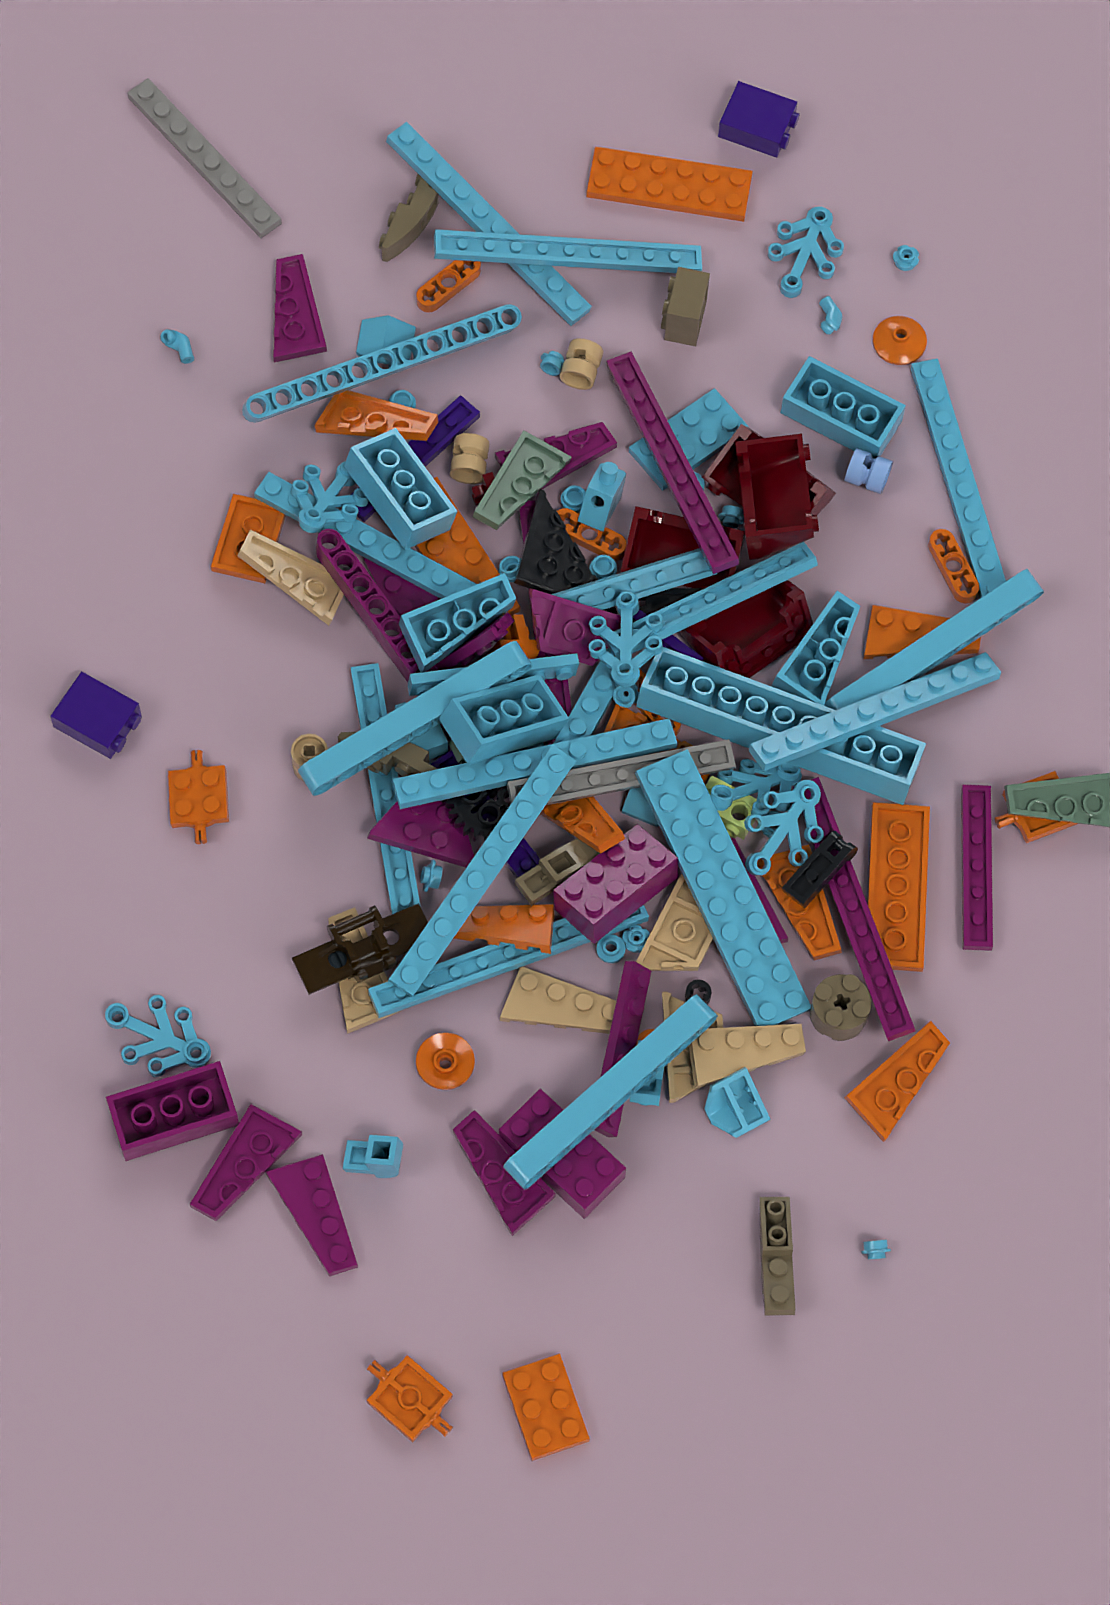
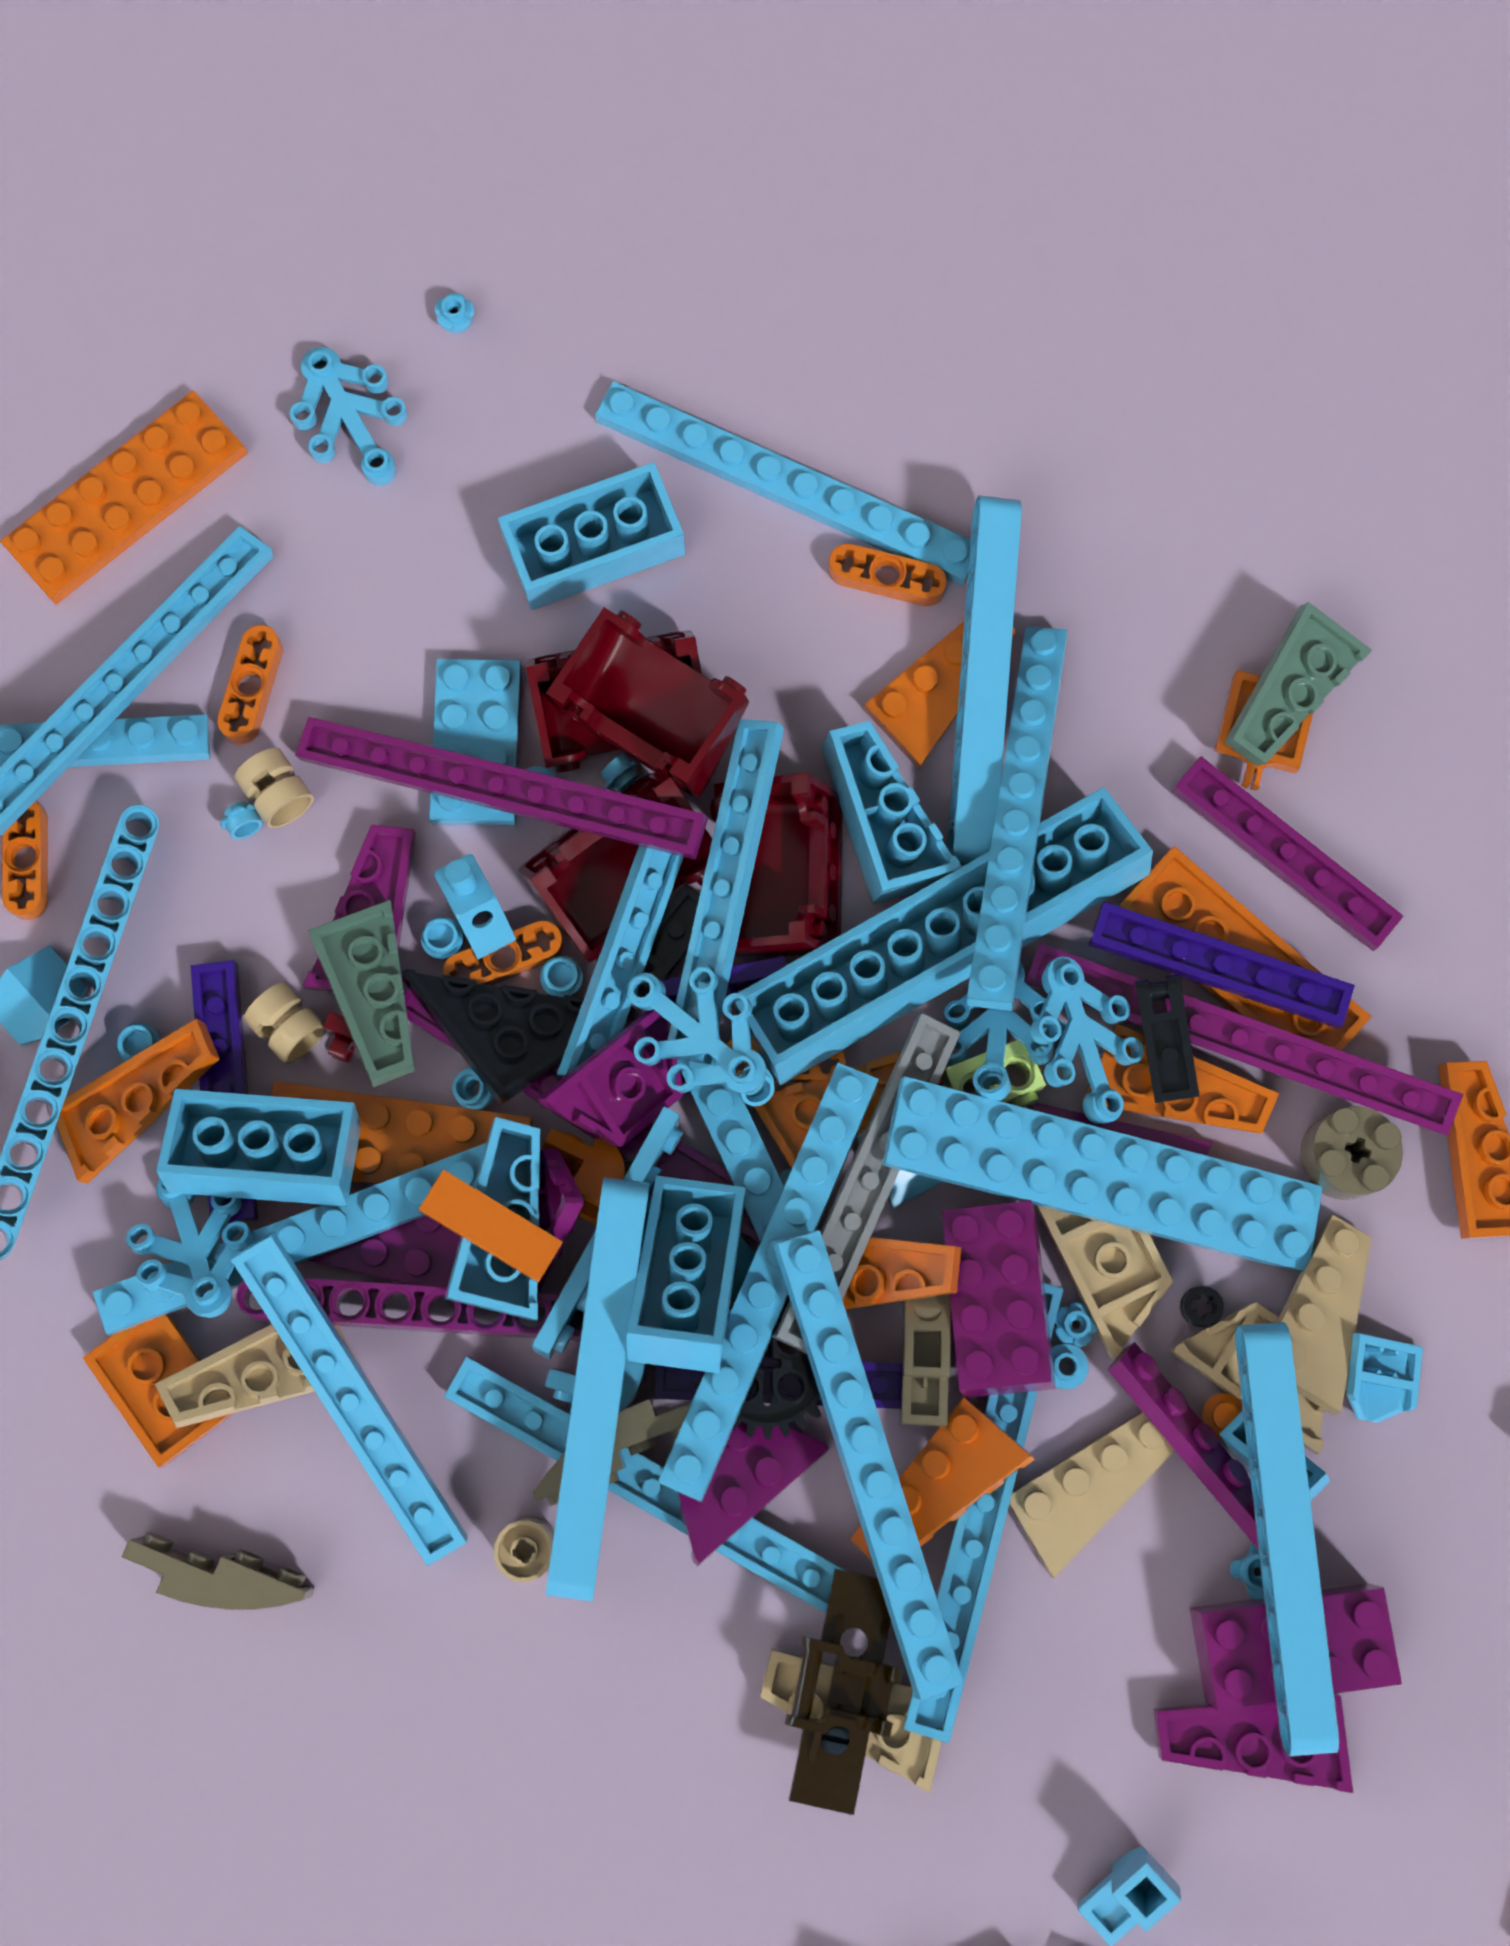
camera: 50 degrees left, 10 degrees up
(96, 715) = (241, 1785): dark purple brick -> none
(181, 636) = (234, 1584): none -> dark tan slope
(198, 796) = (459, 1732): orange plate -> none
(315, 620) = (349, 1398): none -> medium azure plate
(431, 876) = (803, 1516): medium azure plate -> none
(441, 1048) = (1083, 1711): orange dish -> none
(450, 608) = (490, 1226): none -> orange tile
(639, 300) = (246, 653): none -> orange beam
(685, 306) = (306, 605): dark tan brick -> none
(758, 119) = (133, 329): dark purple brick -> none
(833, 316) = (459, 451): medium azure arm -> none
(868, 471) = (696, 570): light blue wheel -> none
(883, 870) = (1222, 965): none -> dark purple plate
(895, 349) = (556, 419): orange dish -> none

